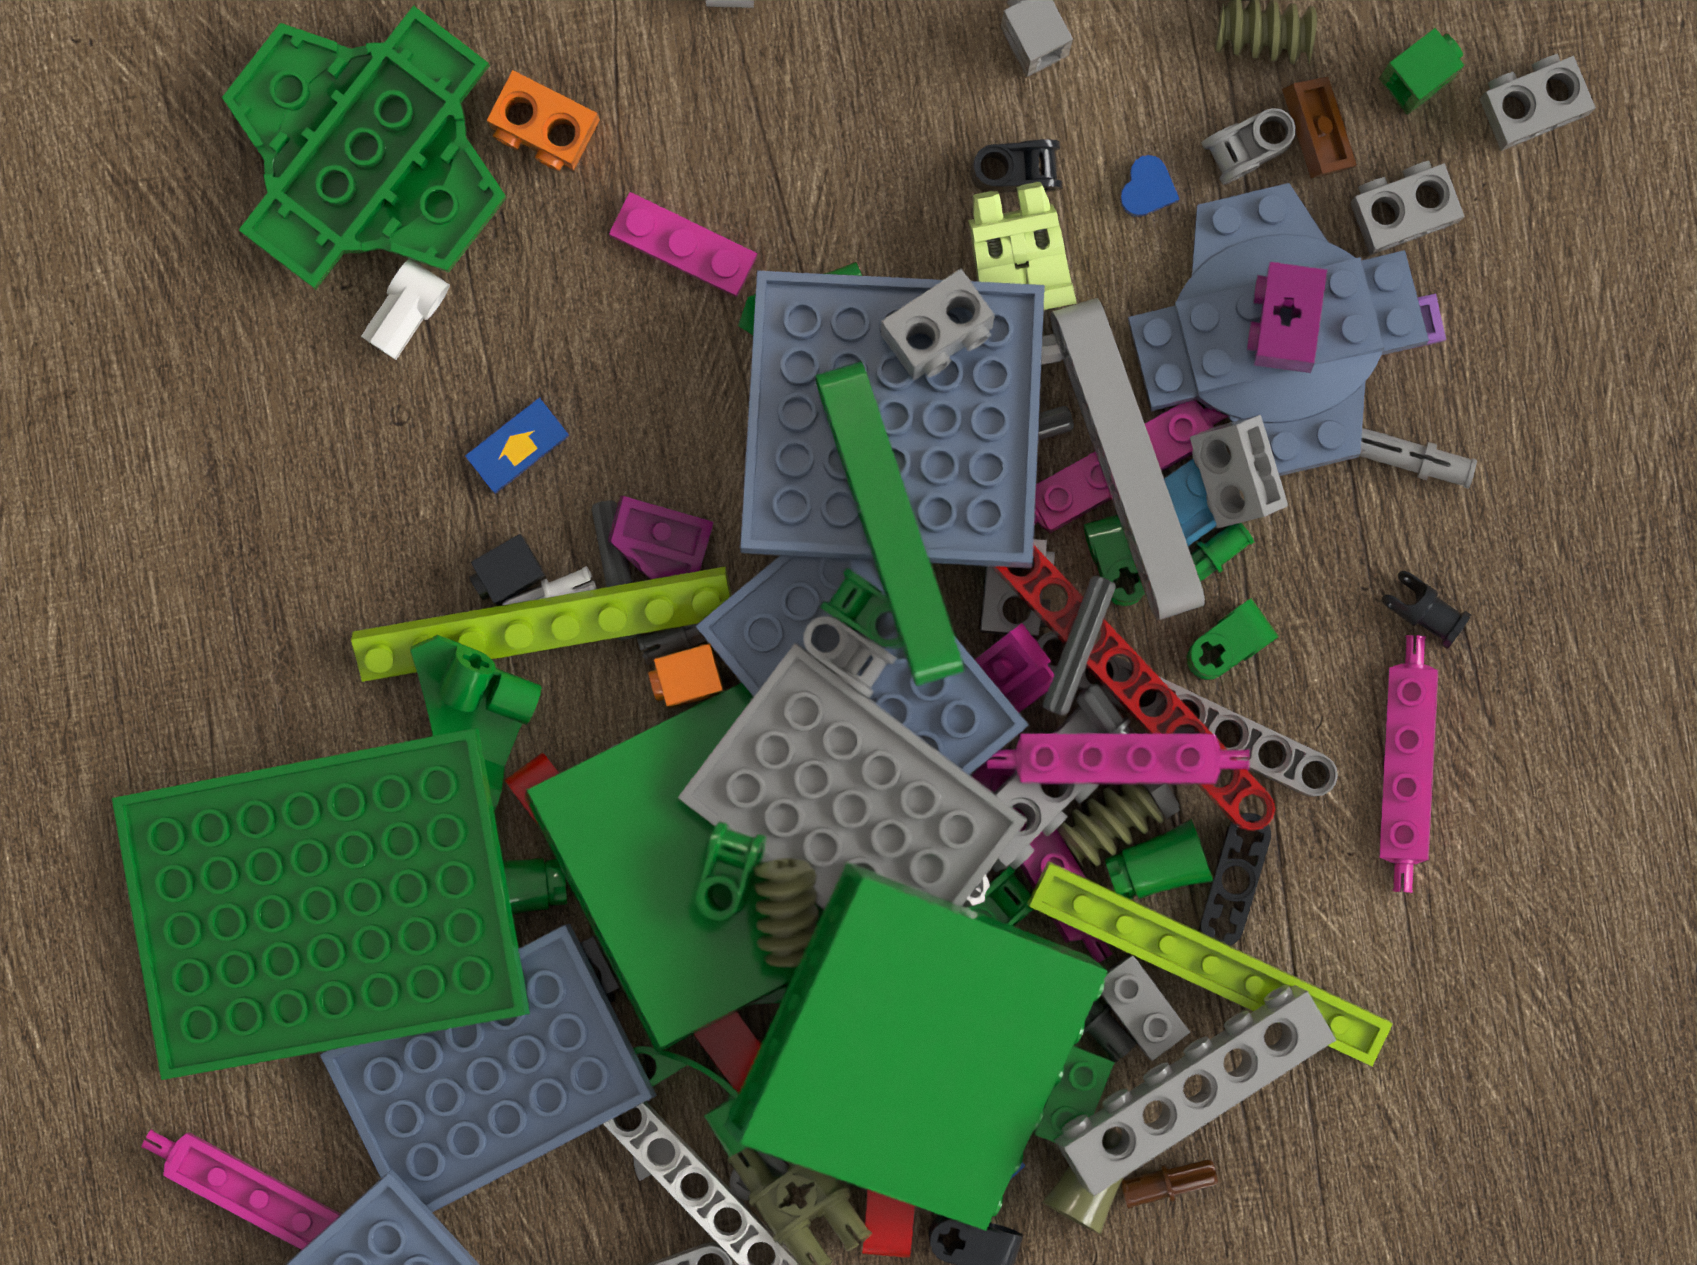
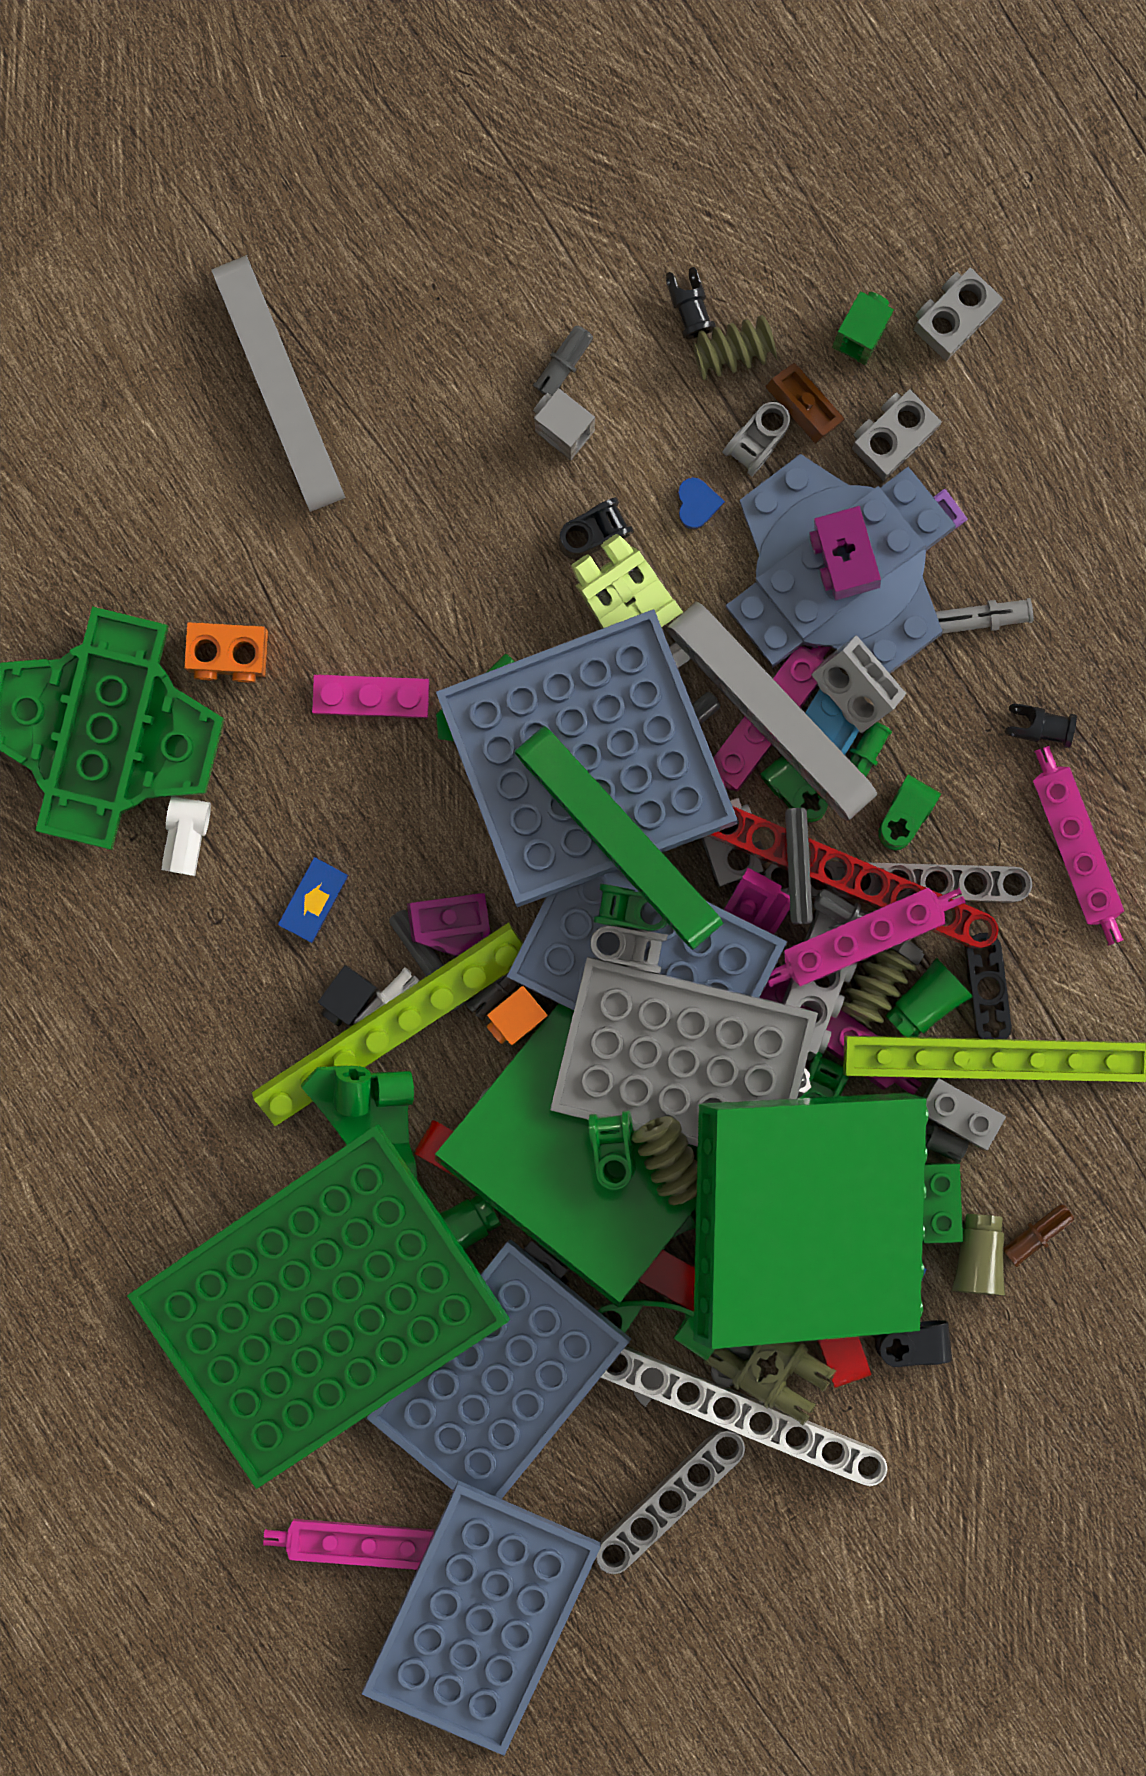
camera: 20 degrees left, 0 degrees up
(929, 317) = (579, 670): light grey brick -> none
(1302, 1036) = (1090, 1083): light grey brick -> none

